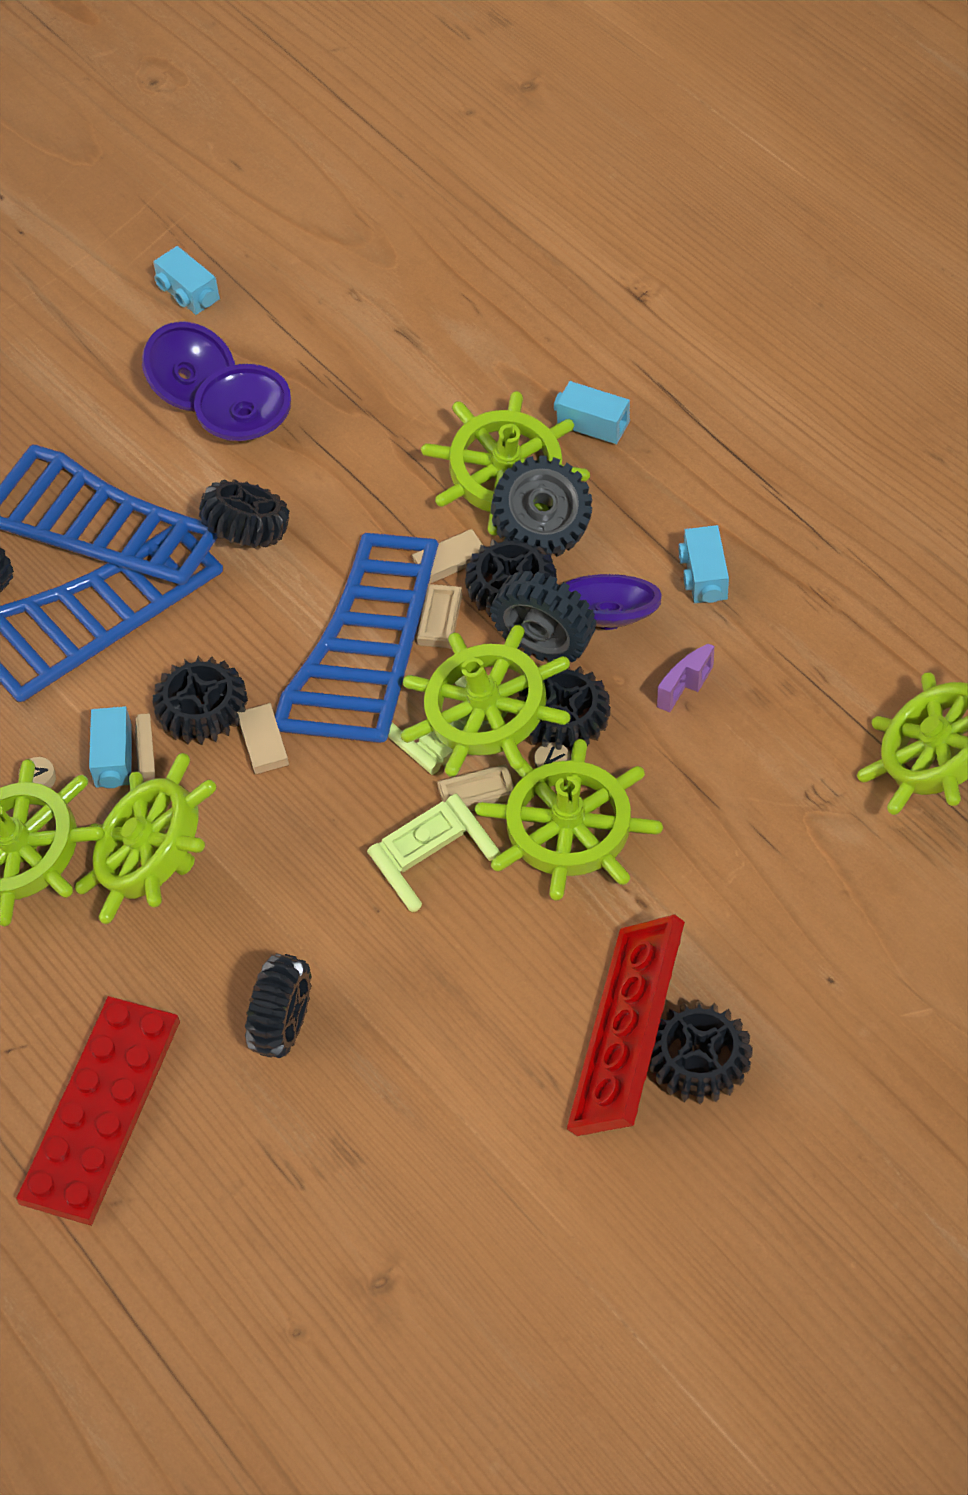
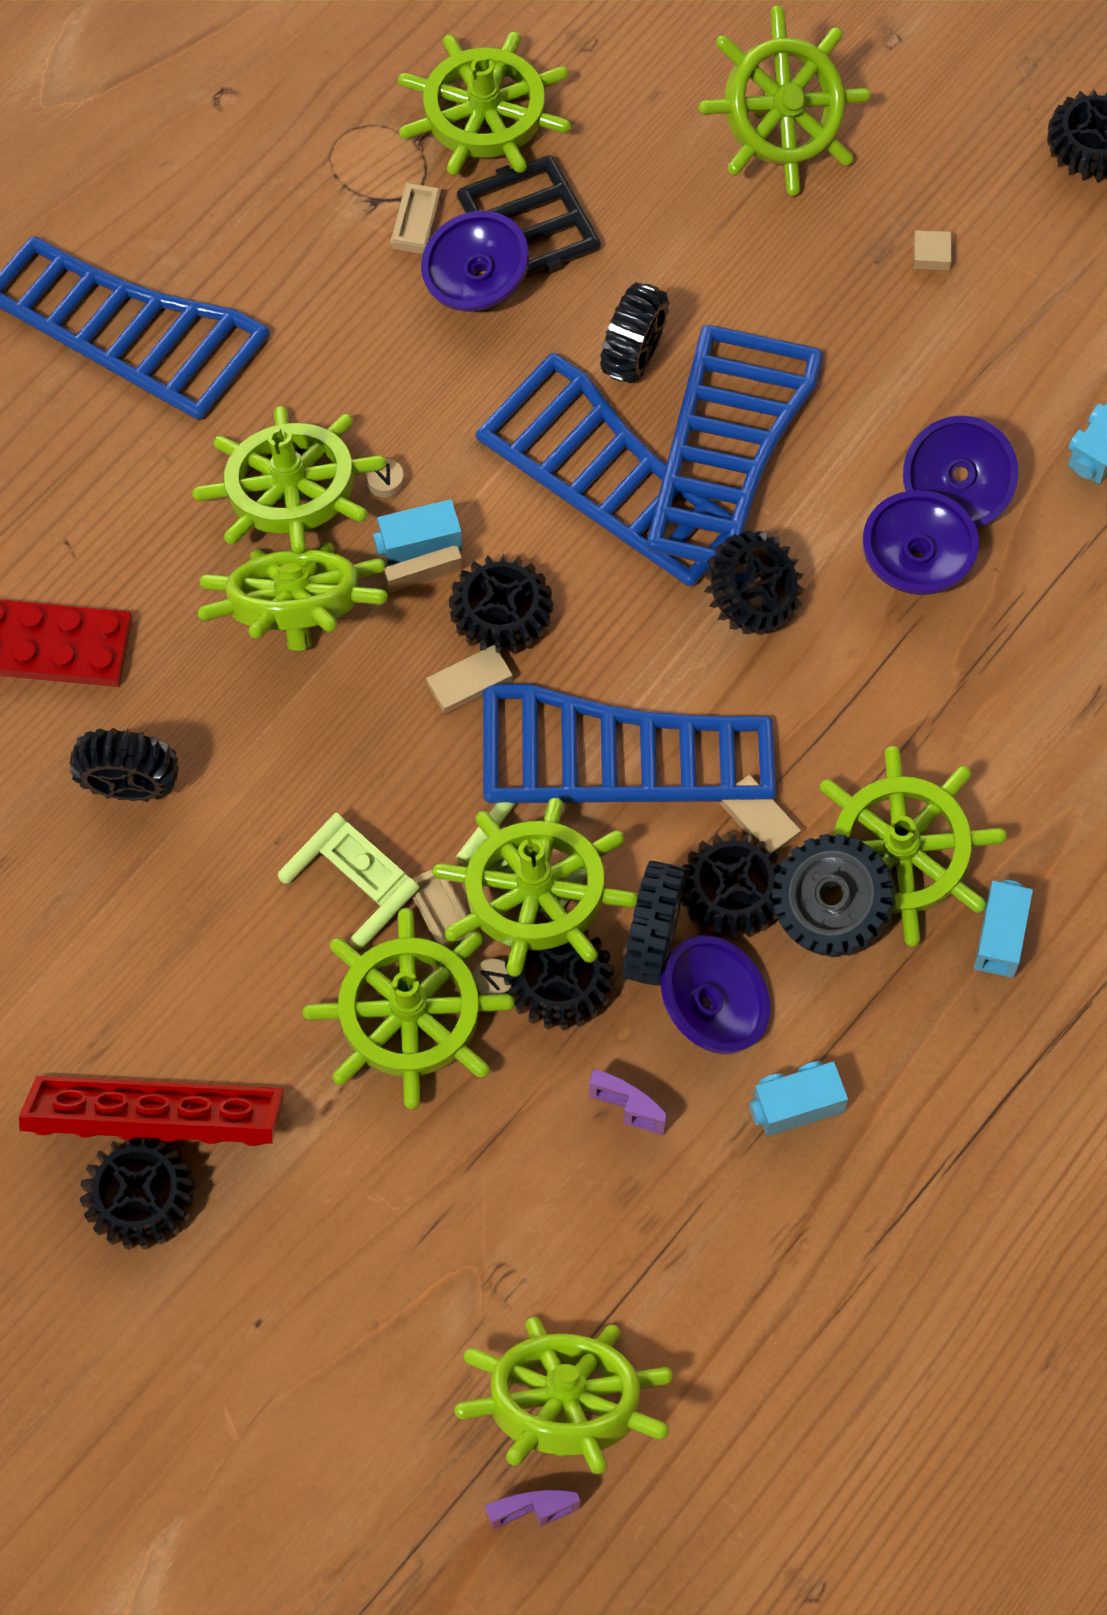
camera: 75 degrees right, 10 degrees up
(439, 615) = (671, 823): tan tile -> none

